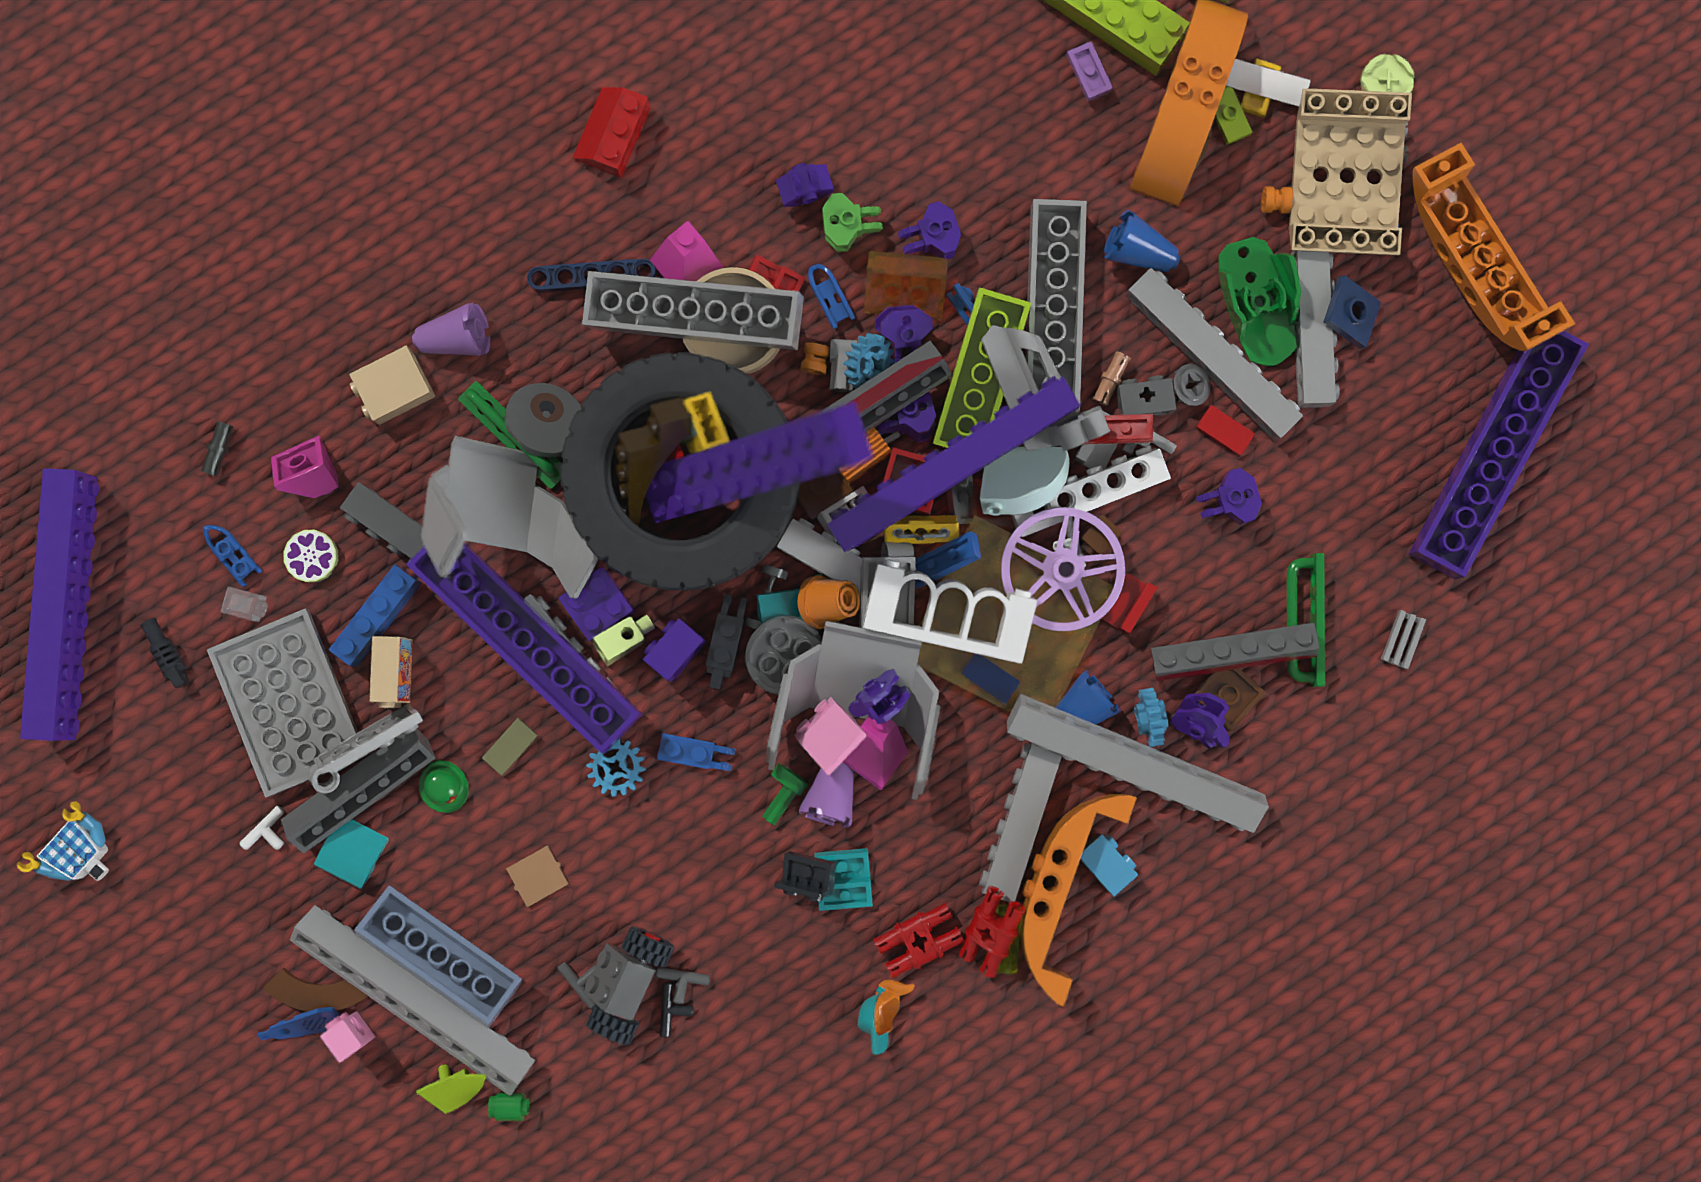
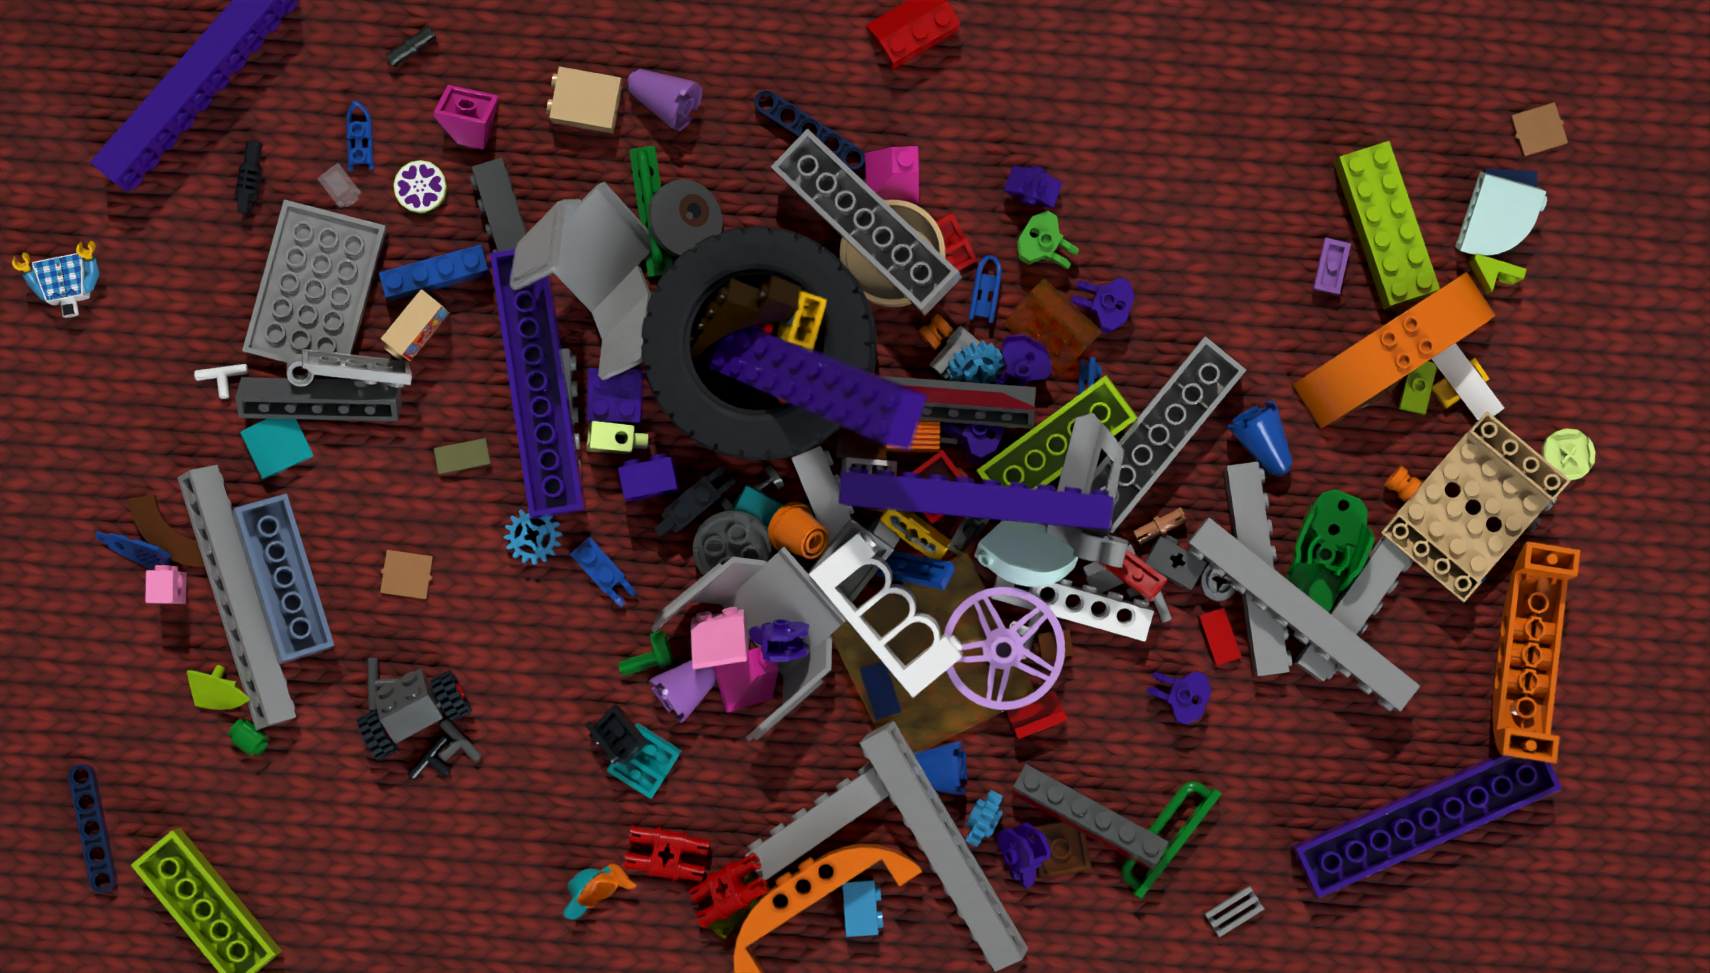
camera: 30 degrees right, 0 degrees up
(443, 786) = (386, 448): green hat -> none
(1280, 362) = (1302, 615): none -> light grey brick
(1340, 314) = (1379, 617): dark blue piece -> none

